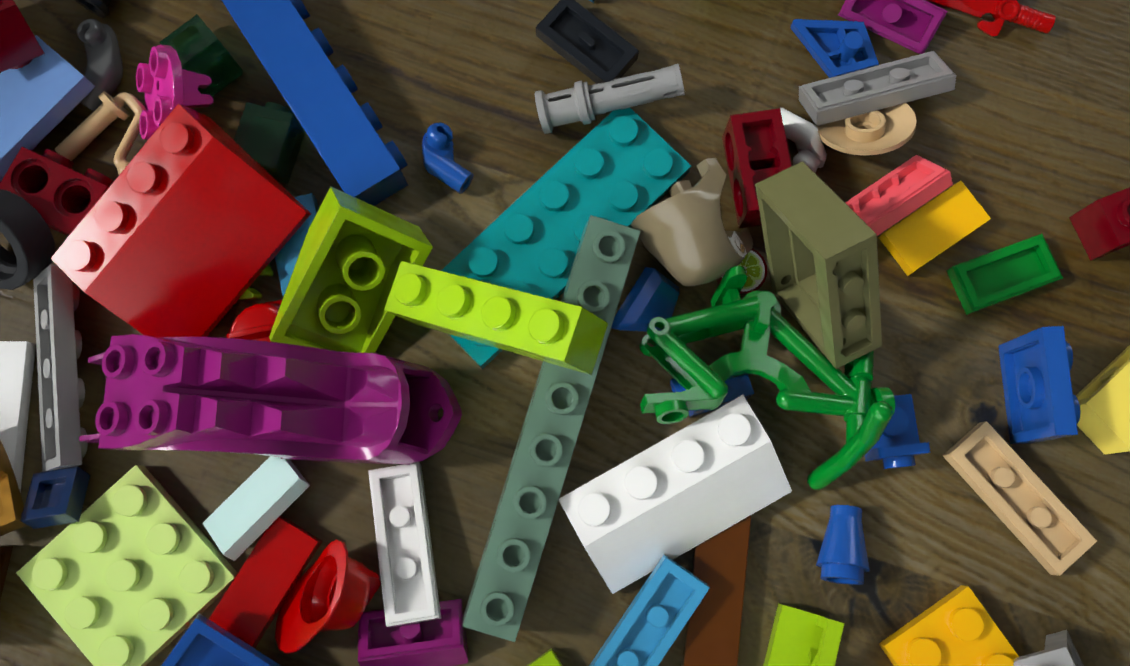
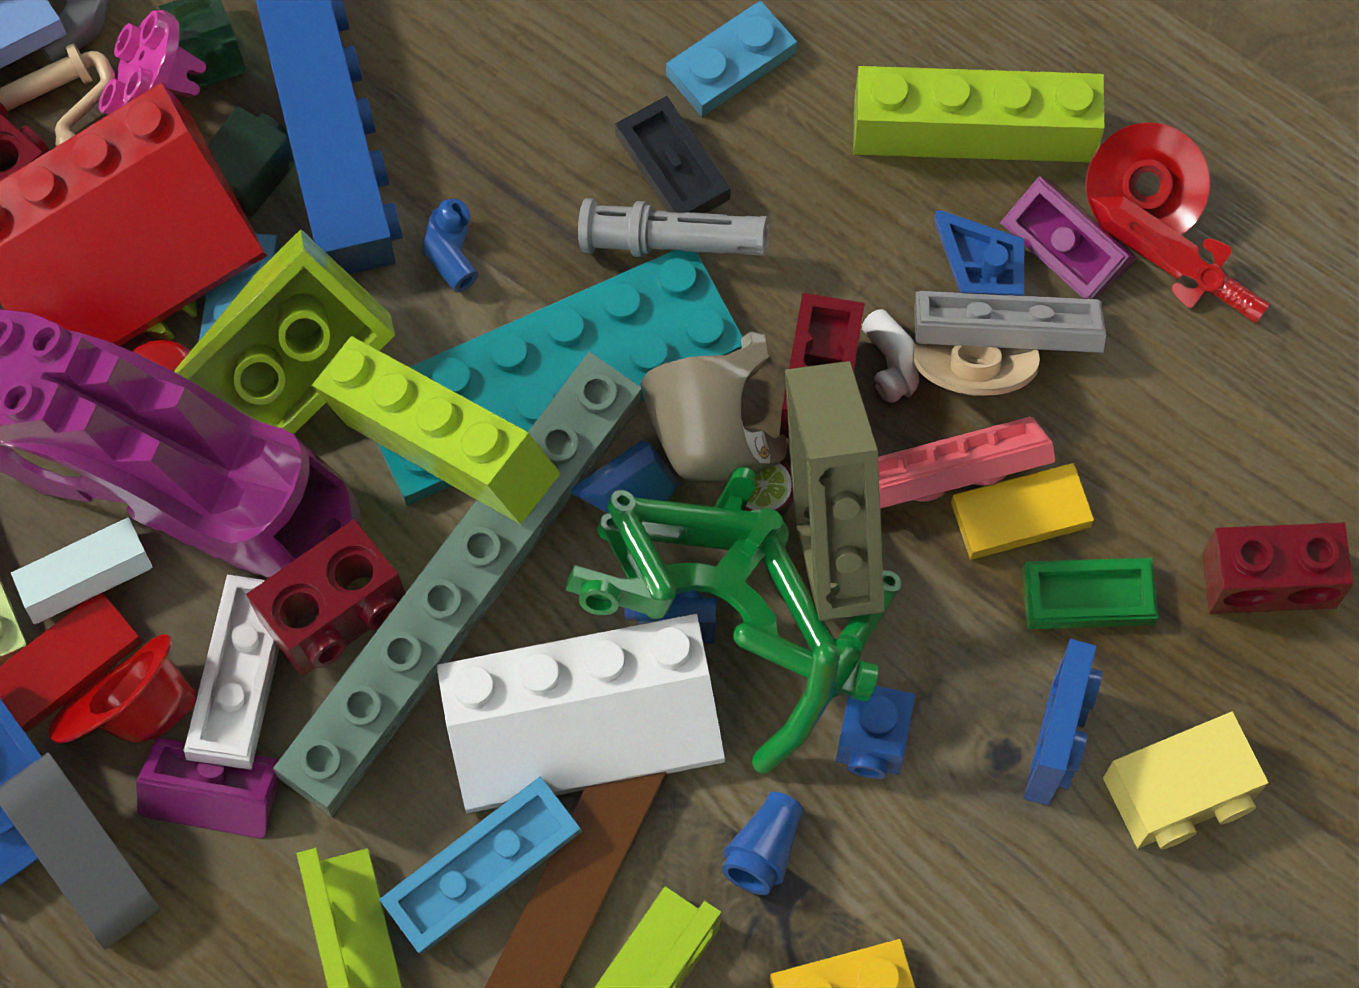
camera: 15 degrees right, 10 degrees down
(444, 464) = (318, 587): none -> dark red brick
(1019, 498) = (1001, 857): tan plate -> none

